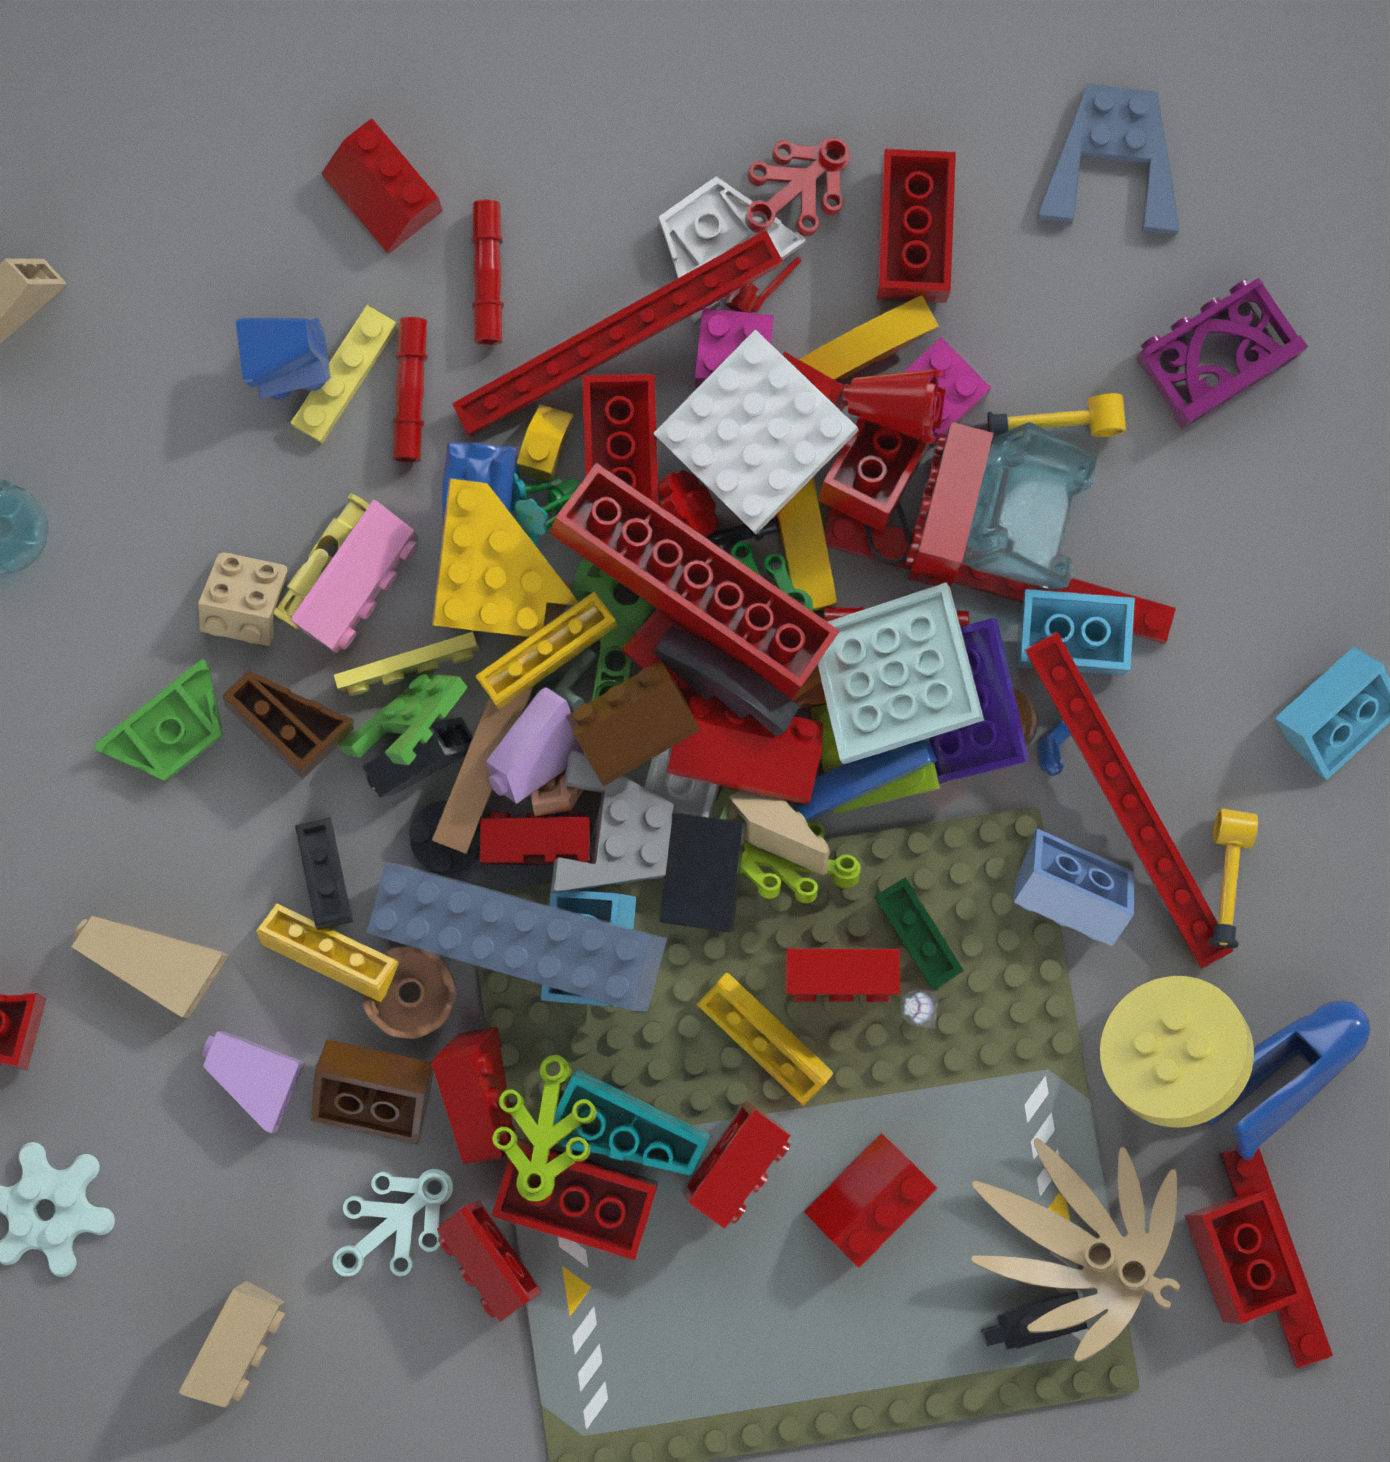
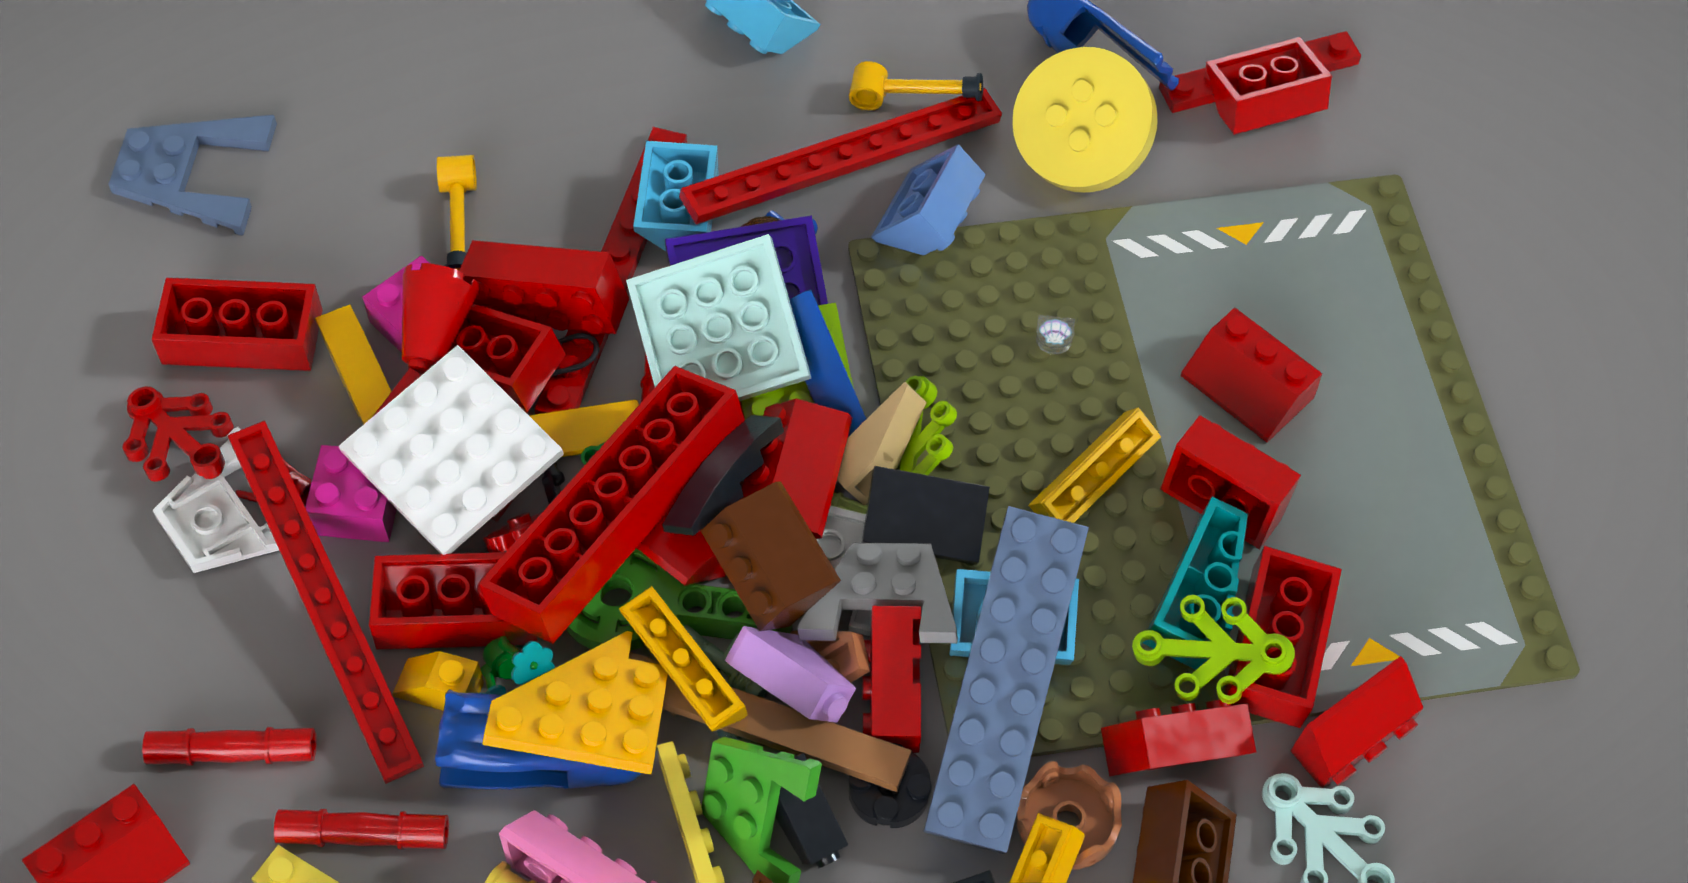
camera: 90 degrees left, 25 degrees down
(841, 974) = (1028, 386): red brick -> none
(918, 933) = (980, 331): dark green plate -> none
(1014, 1322) = (1349, 246): black hinge -> none
(1027, 506) = (510, 216): clear light blue windscreen -> none
(1112, 1264) = (1286, 182): tan plant -> none
(1201, 396) = (406, 44): magenta fence -> none

